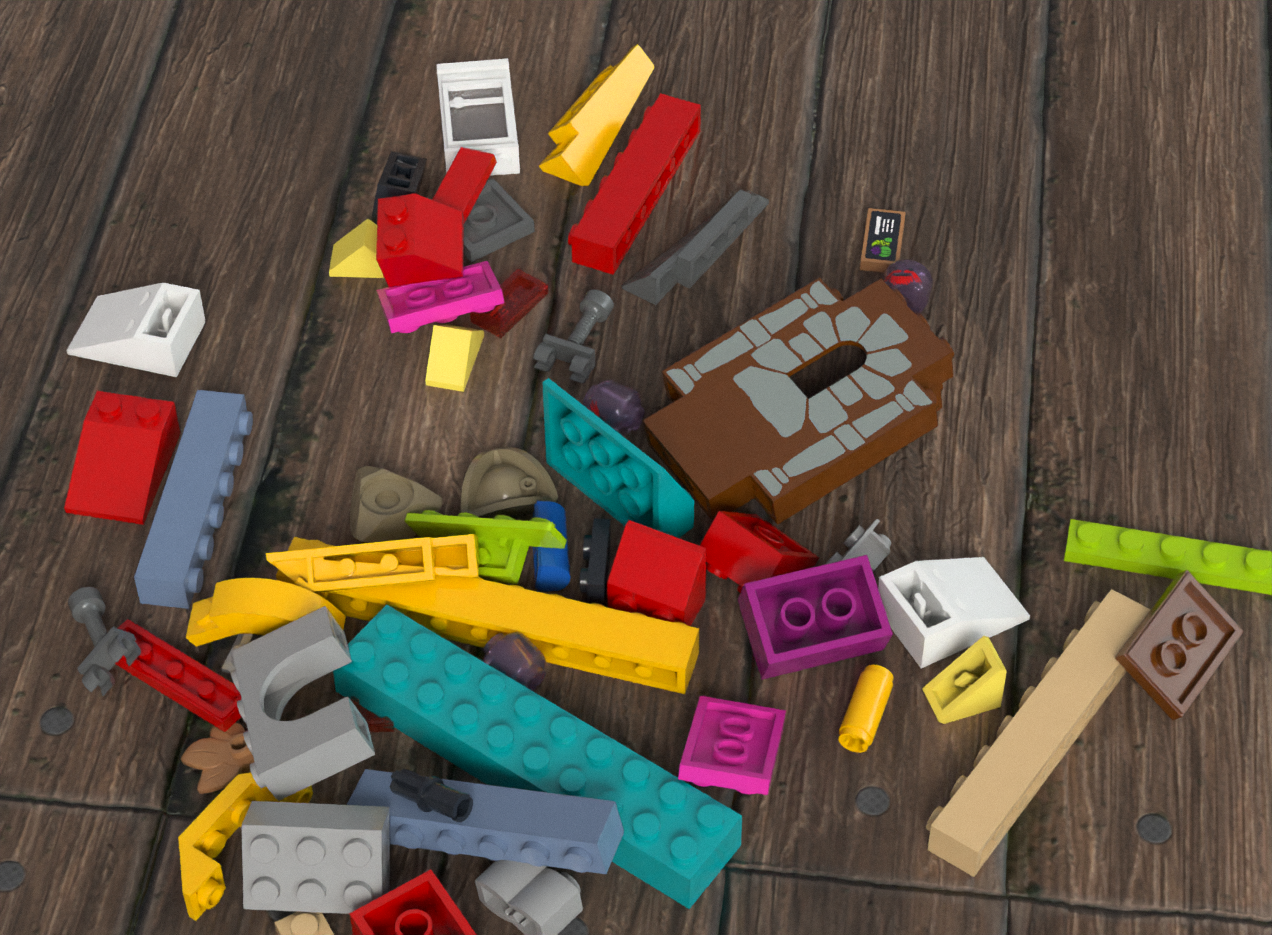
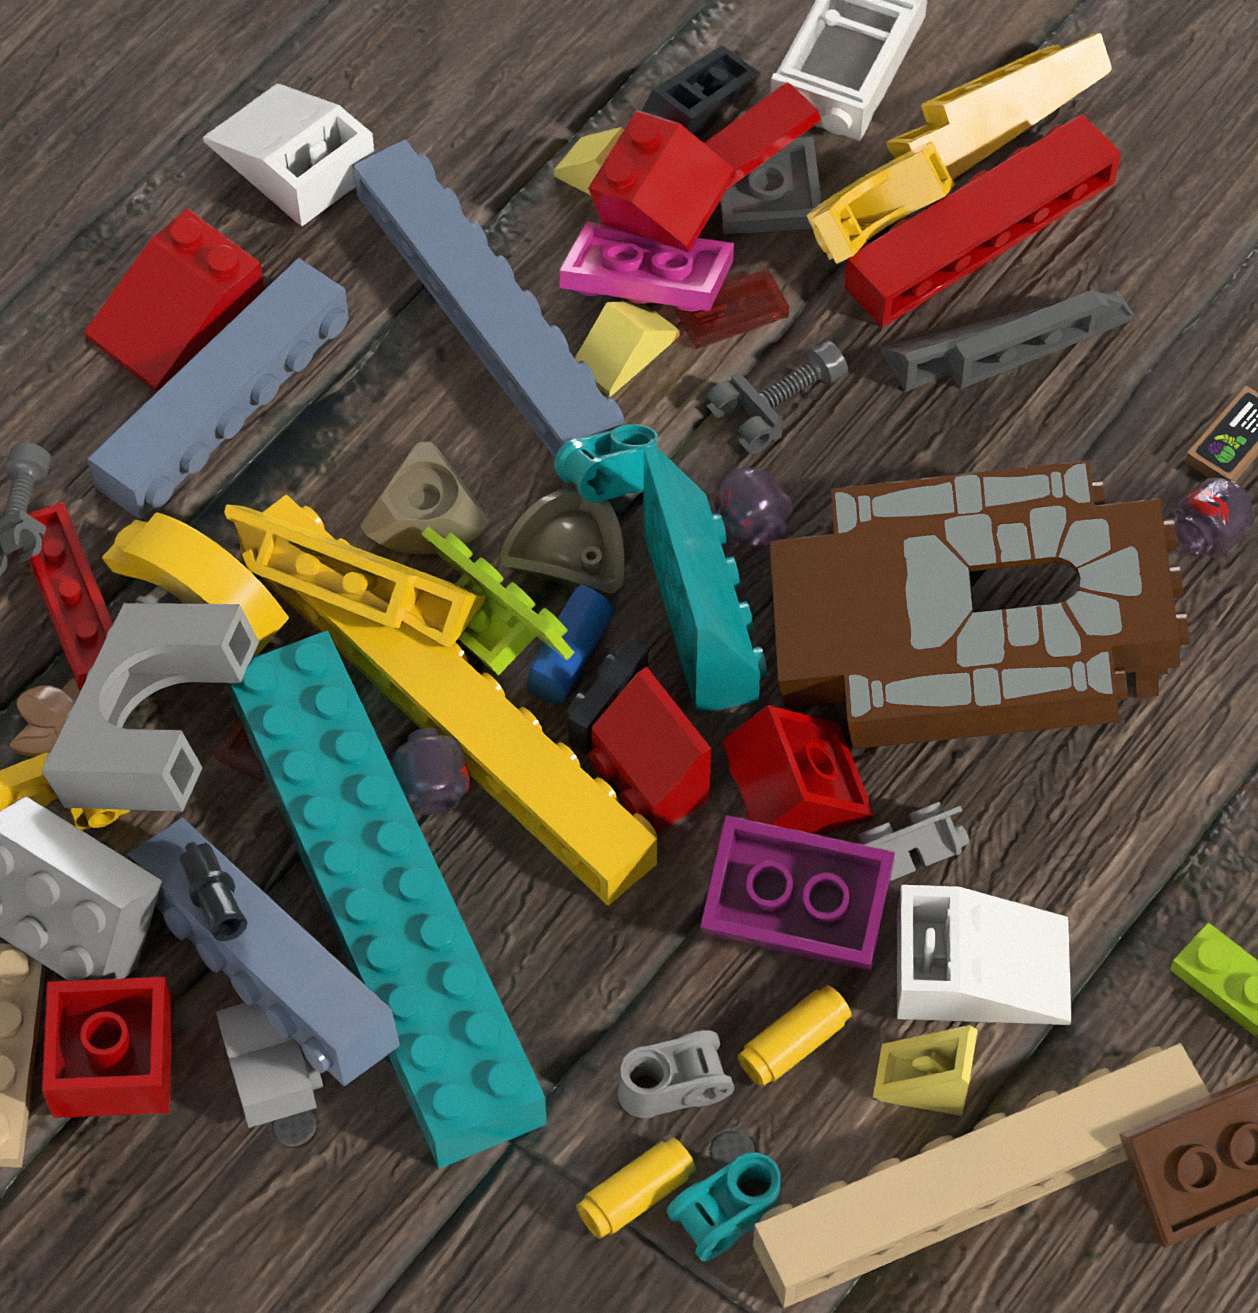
camera: 30 degrees right, 10 degrees up
(346, 368) = (482, 298): none -> sand blue brick
(500, 422) = (606, 462): none -> teal piece
(565, 194) = (879, 200): none -> yellow arch
(732, 745) = (599, 1003): dark pink plate -> none
(812, 766) = (686, 1075): none -> light grey piece
(831, 850) = (636, 1188): none -> yellow piece
(897, 832) = (716, 1209): none -> teal piece

